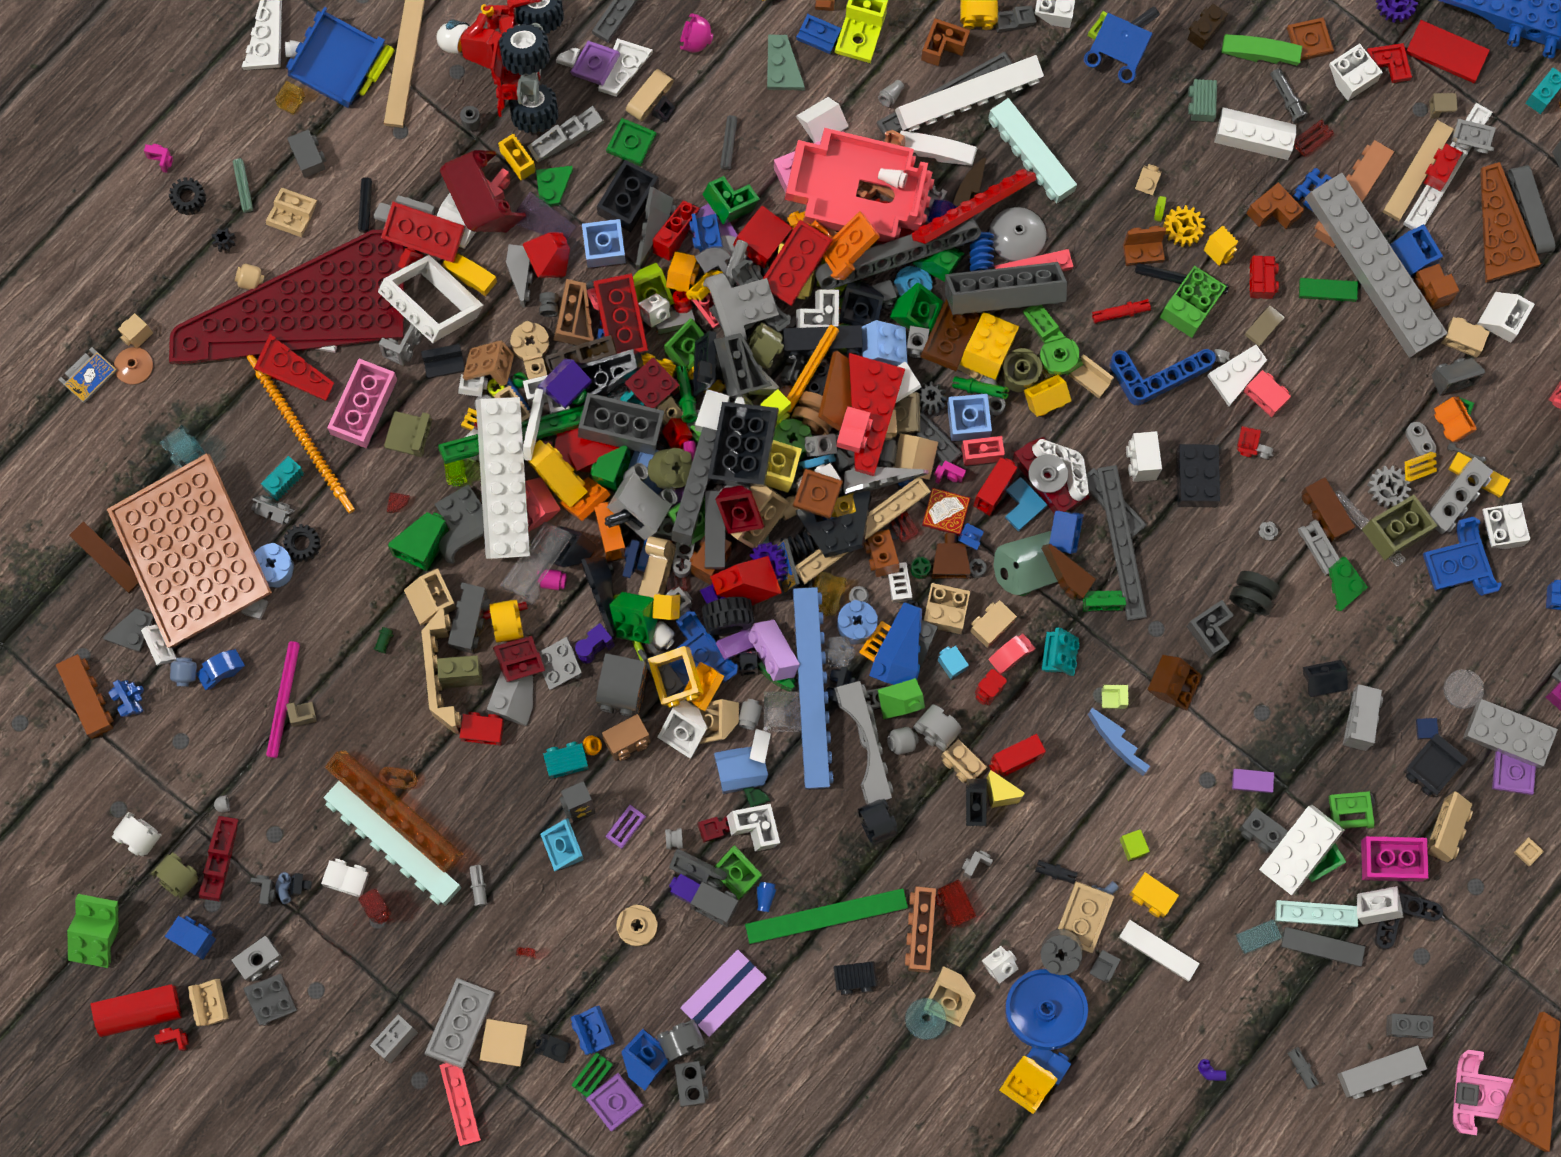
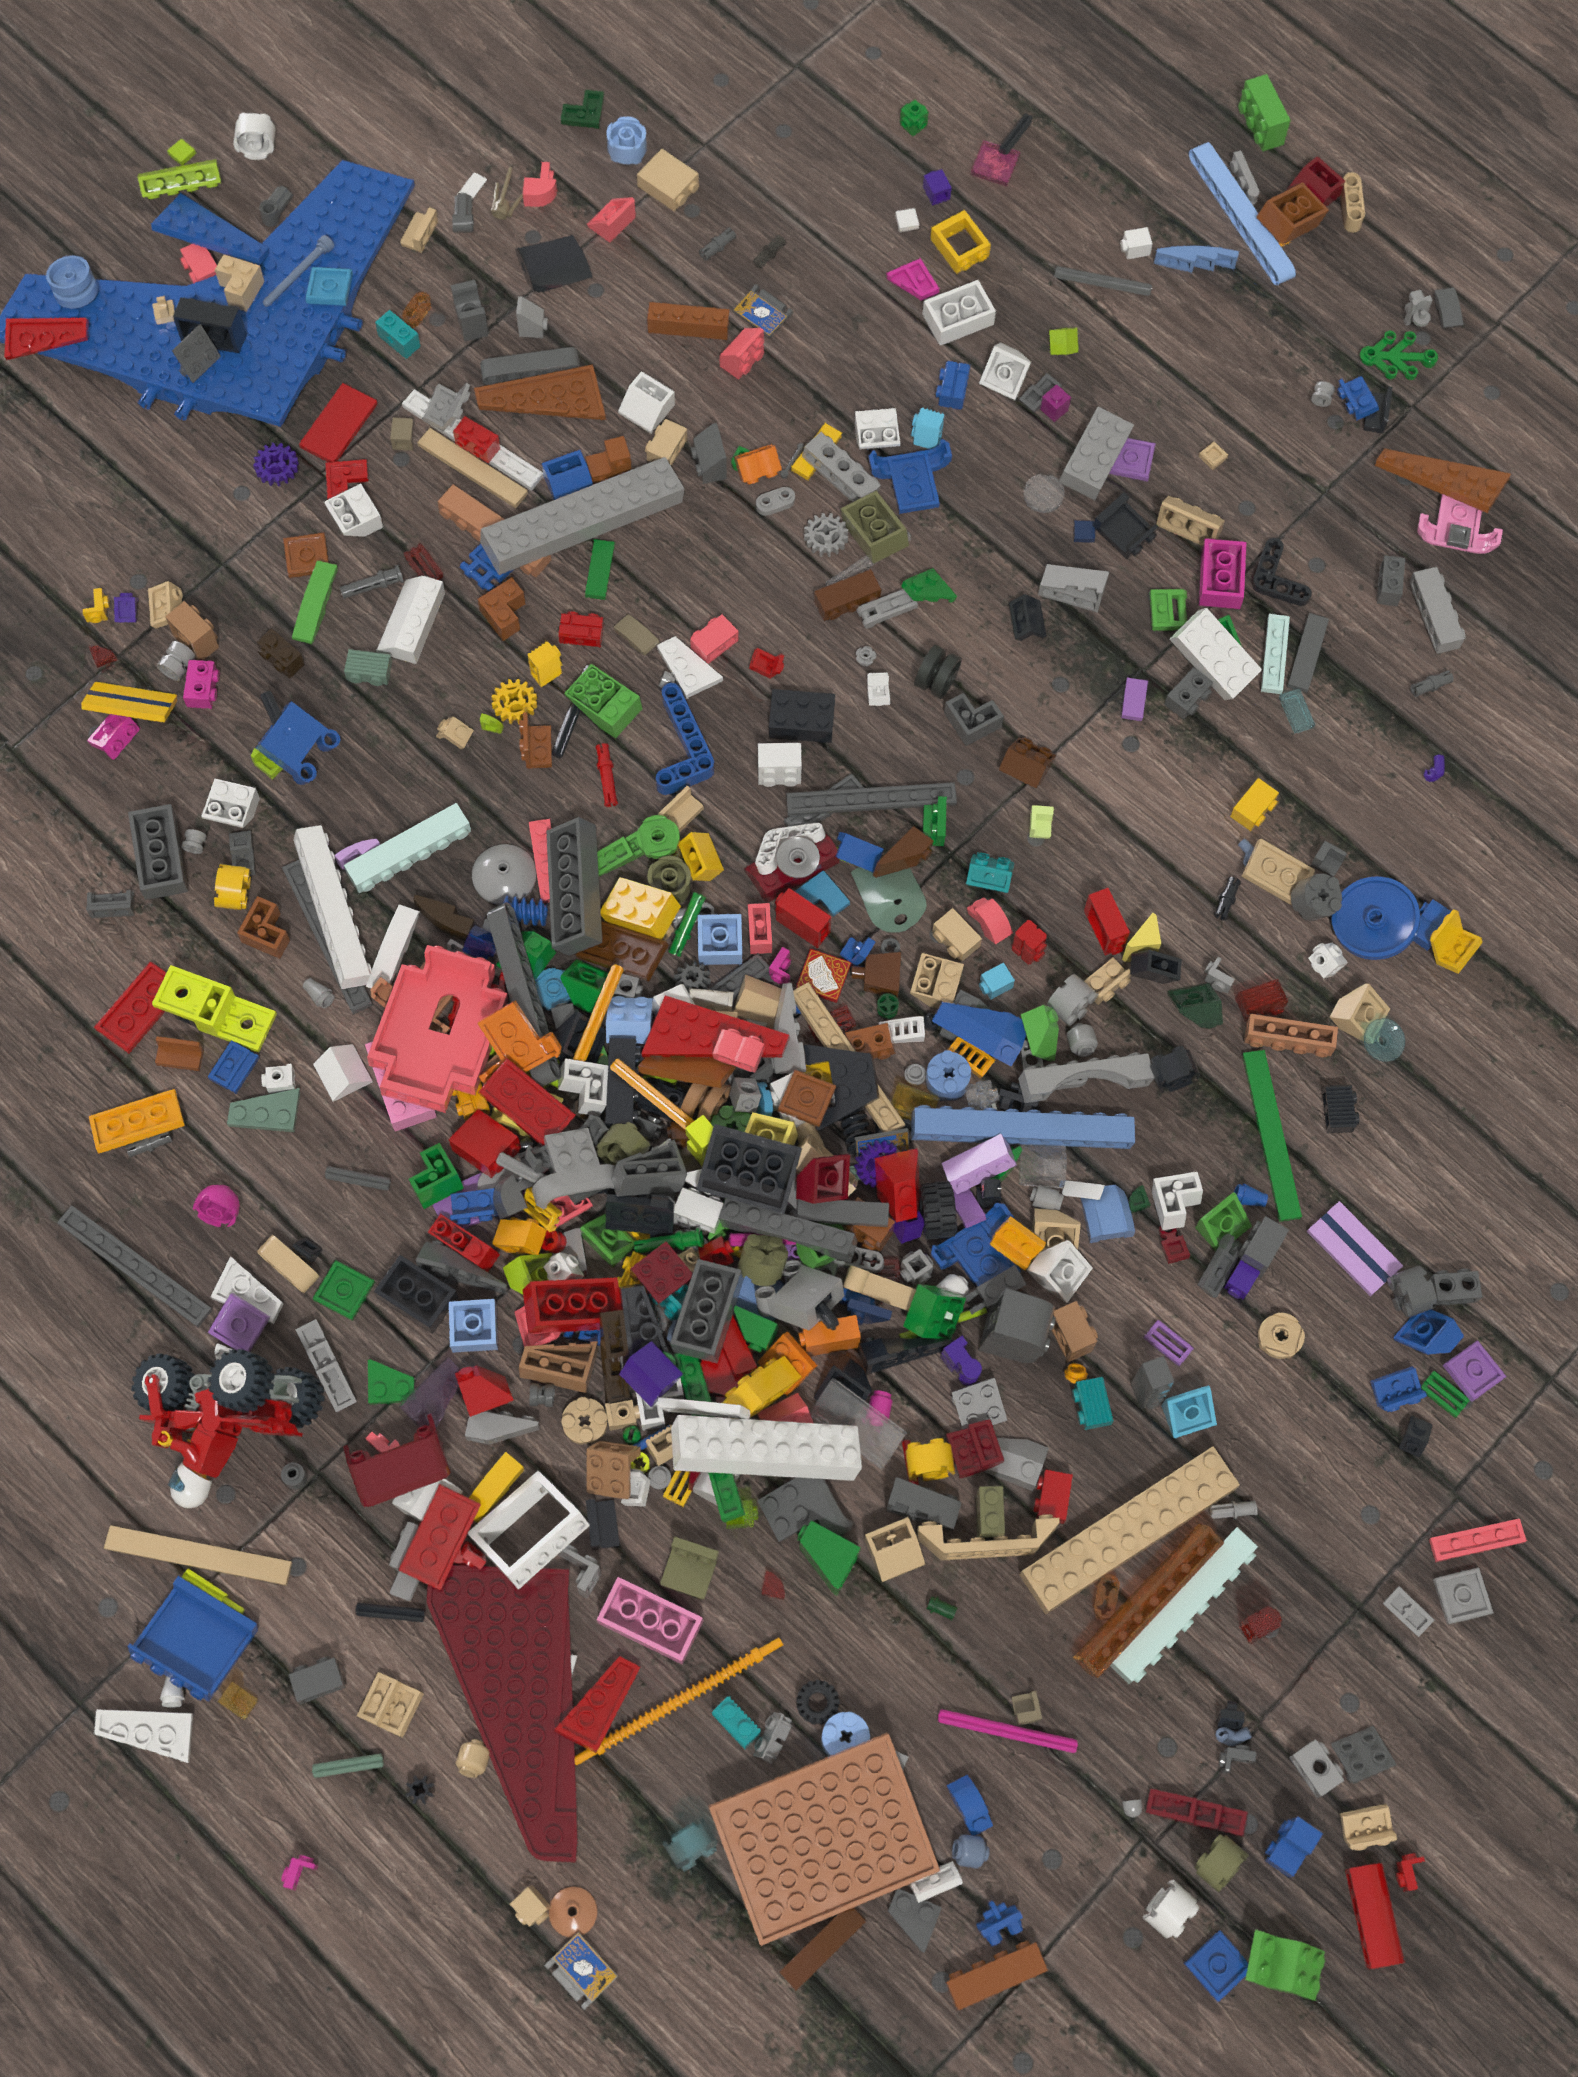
camera: 85 degrees left, 5 degrees down
(96, 877) = (1218, 1966): none -> blue tile
(183, 186) = (342, 1829): black tyre -> none
(345, 878) = (1224, 1661): white brick -> none
(411, 1090) = (1463, 1596): none -> light grey tile
(455, 795) = (1129, 1530): none -> tan brick
(459, 1023) = (1390, 1536): light grey tile -> none
(503, 1043) = (1409, 1489): tan tile -> none
(517, 157) = (352, 1422): yellow brick -> none
(528, 952) = (1310, 1459): clear red tile -> none
(666, 606) = (929, 1273): yellow panel -> none
(668, 657) = (987, 1271): yellow window -> none
(674, 838) = (1185, 1289): light grey wheel -> none
(810, 76) = (284, 1083): none -> white brick
(885, 316) = (598, 1013): none -> light orange axle
(896, 178) = (433, 989): white cone -> none
(945, 843) = (1198, 1004): none -> clear green slope
(974, 206) = (476, 908): red plate -> none
(1024, 108) = (354, 851): none -> lavender slope
(1112, 735) = (1086, 826): medium blue slope -> none
(1134, 845) = (1203, 818): lime panel -> none
(1159, 950) = (1310, 807): white tile -> none
(1233, 543) = (878, 689): none -> white bracket
(1264, 451) = (778, 648): light grey plate -> none
(1379, 905) = (1269, 592): white slope -> none
(1409, 472) = (808, 501): yellow tile -> none
(1513, 572) = (927, 428): none -> medium azure brick

